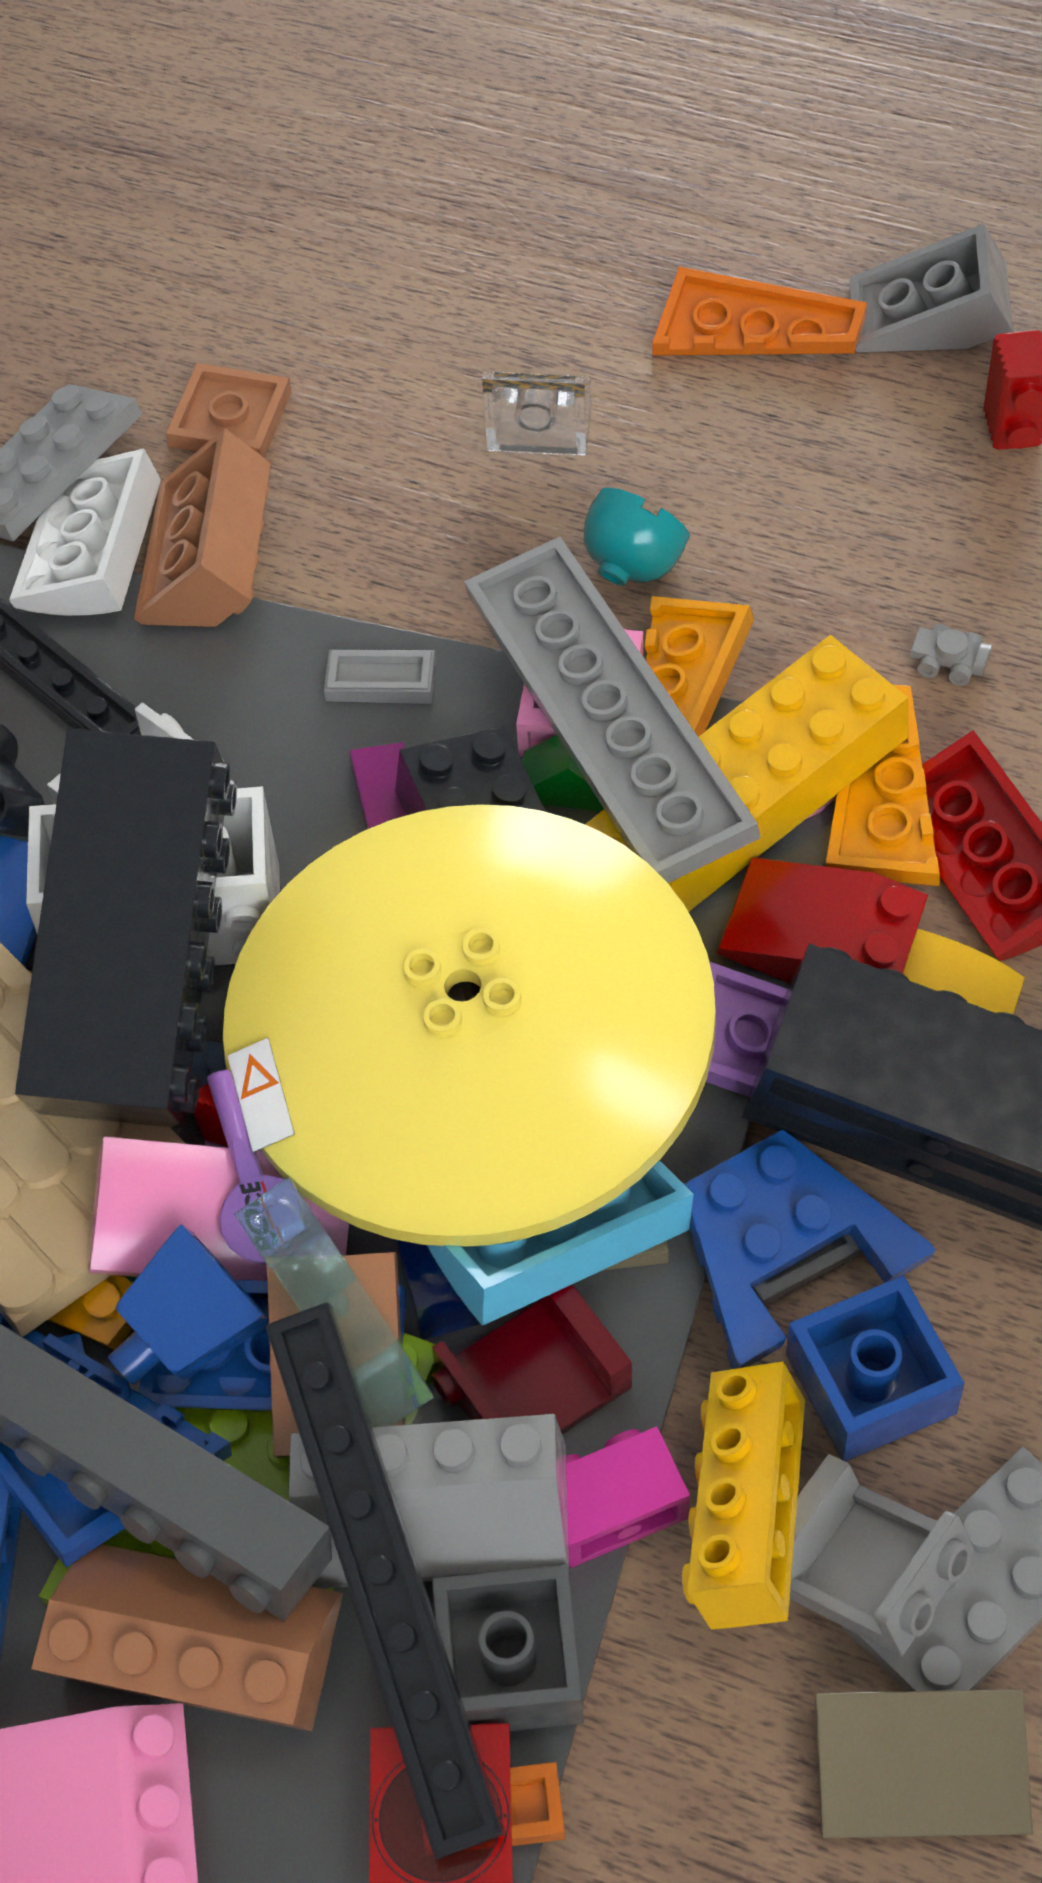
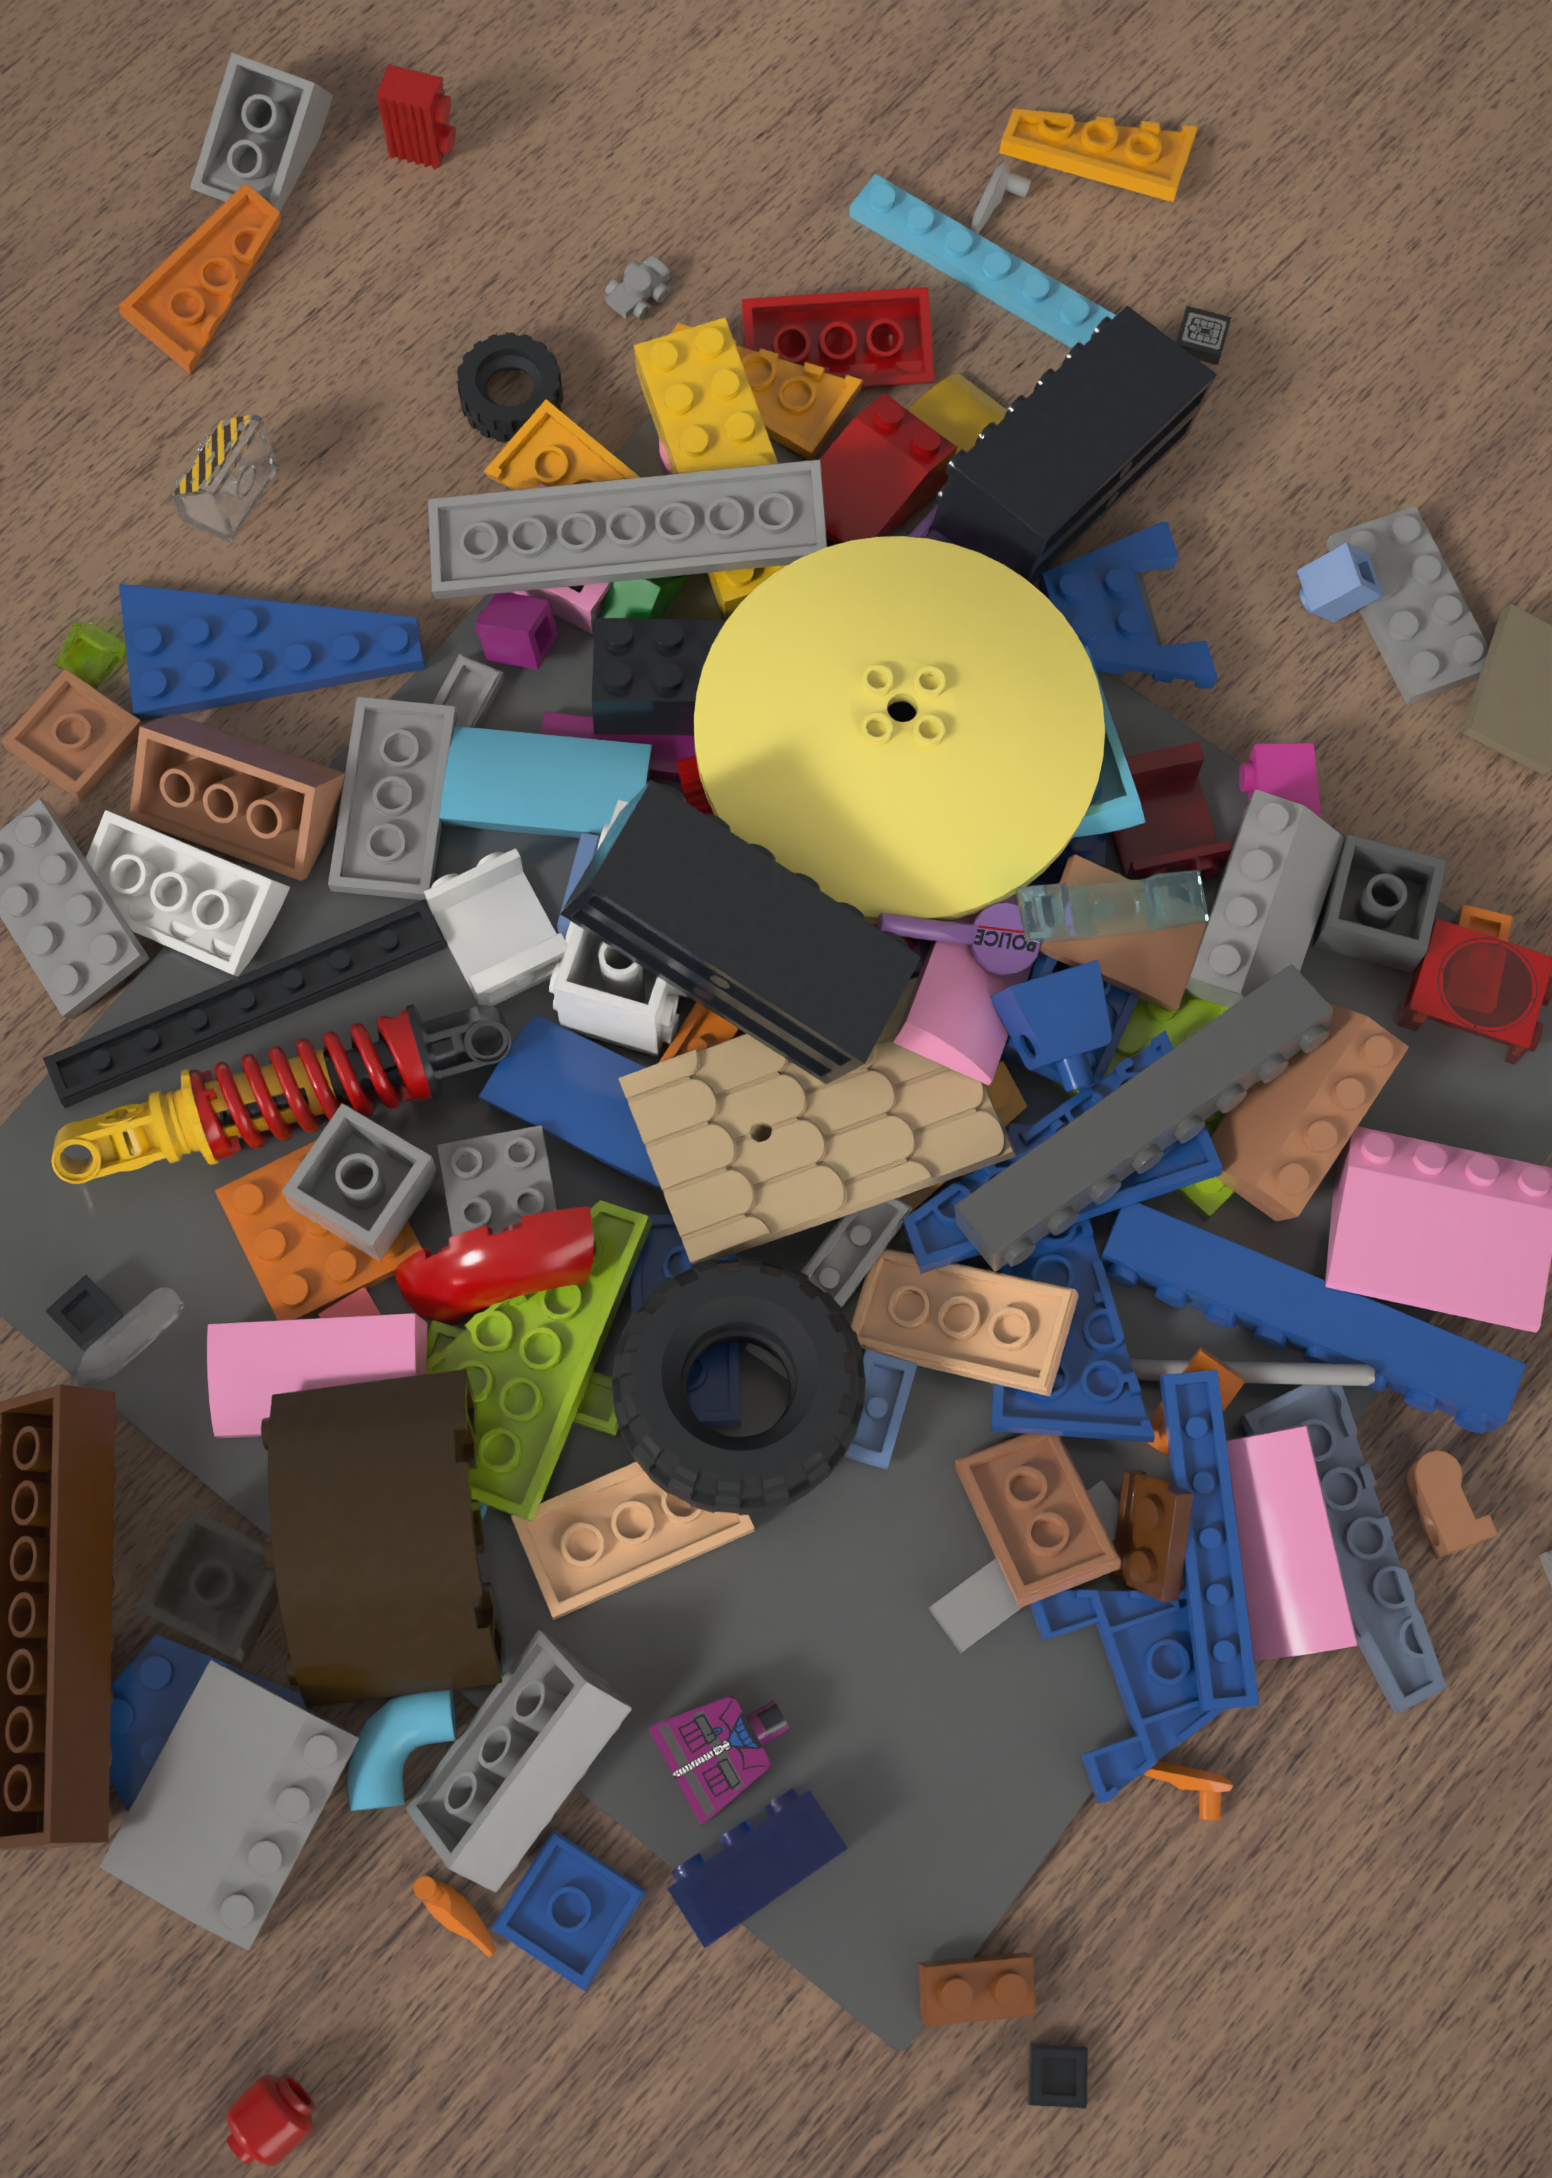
camera: 75 degrees left, 15 degrees up
(247, 652) = (392, 799): none -> light grey plate
(260, 1095) = (913, 896): white sticker -> none
(311, 762) = (539, 781): none -> medium azure slope
(319, 393) = (90, 653): none -> clear neon green slope
(369, 493) = (231, 650): none -> blue wing
(385, 1583) = (1323, 946): black tile -> none
(473, 678) = (517, 630): none -> magenta brick
(630, 539) = (416, 462): teal cylinder -> none
(746, 1497) = (1319, 709): yellow brick -> none
(777, 556) = (503, 354): none -> black tyre
(872, 1558) = (1387, 657): light grey panel -> none
(874, 1368) = (1248, 596): blue brick -> none
(949, 1469) = (1339, 583): none -> medium blue brick

